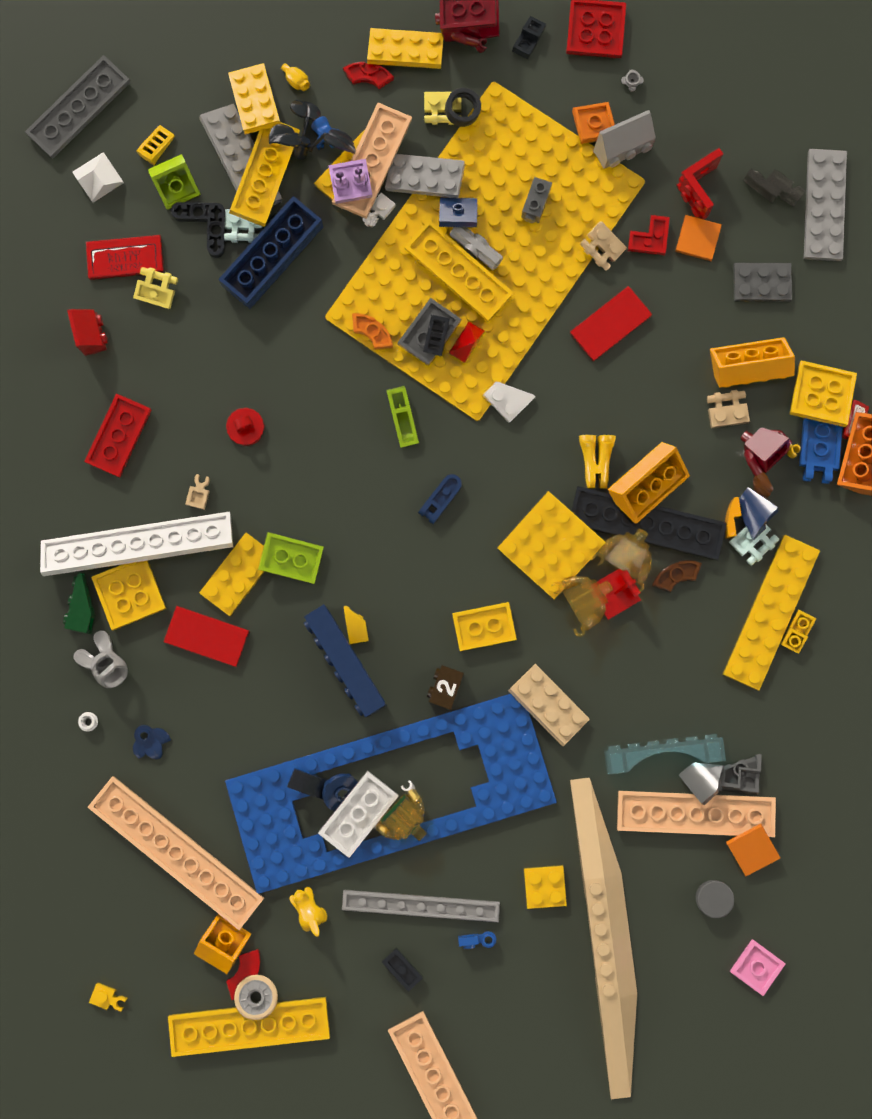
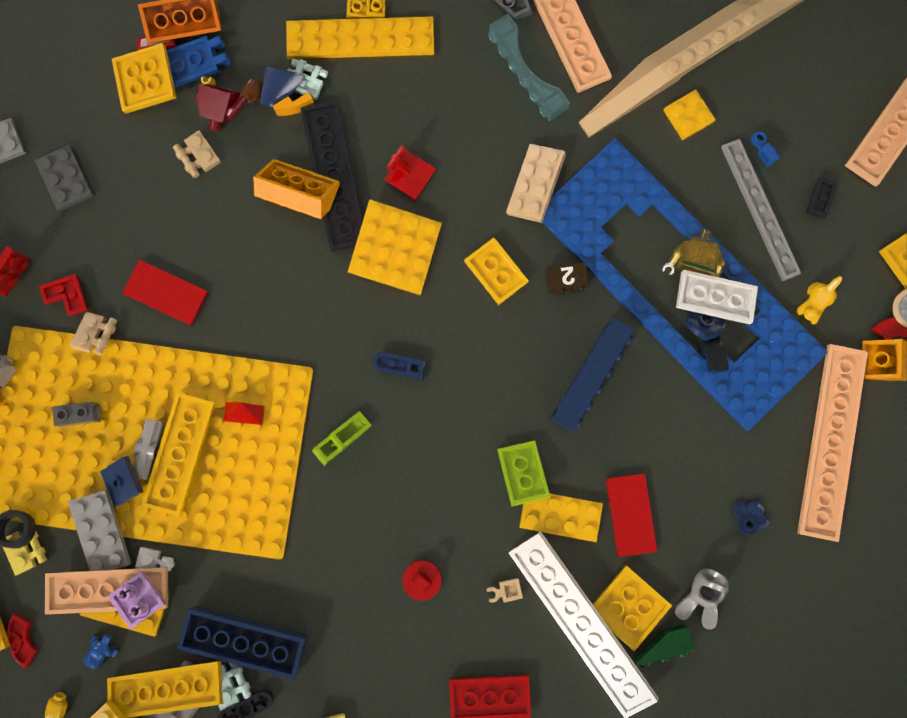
camera: 125 degrees left, 0 degrees up
(82, 721) = (768, 583): white plate -> none
(285, 134) = (118, 688): black plant -> none
(355, 626) = (553, 383): yellow slope -> none
(373, 330) = (273, 506): orange tile -> none
(415, 336) = (250, 452): dark grey plate -> none
(429, 333) = (249, 435): black slope -> none
(507, 400) = (280, 350): white wing -> none
(586, 599) = (428, 193): clear yellow torso -> none
(605, 447) = (308, 241): yellow piece -> none
(628, 553) = (370, 175): clear yellow torso -> none
(677, 573) = (366, 131): reddish brown tile -> none
(698, 238) = (47, 253): orange tile -> none
(703, 780) = (533, 25): slope -> none
(752, 362) = (143, 151): light orange slope -> none

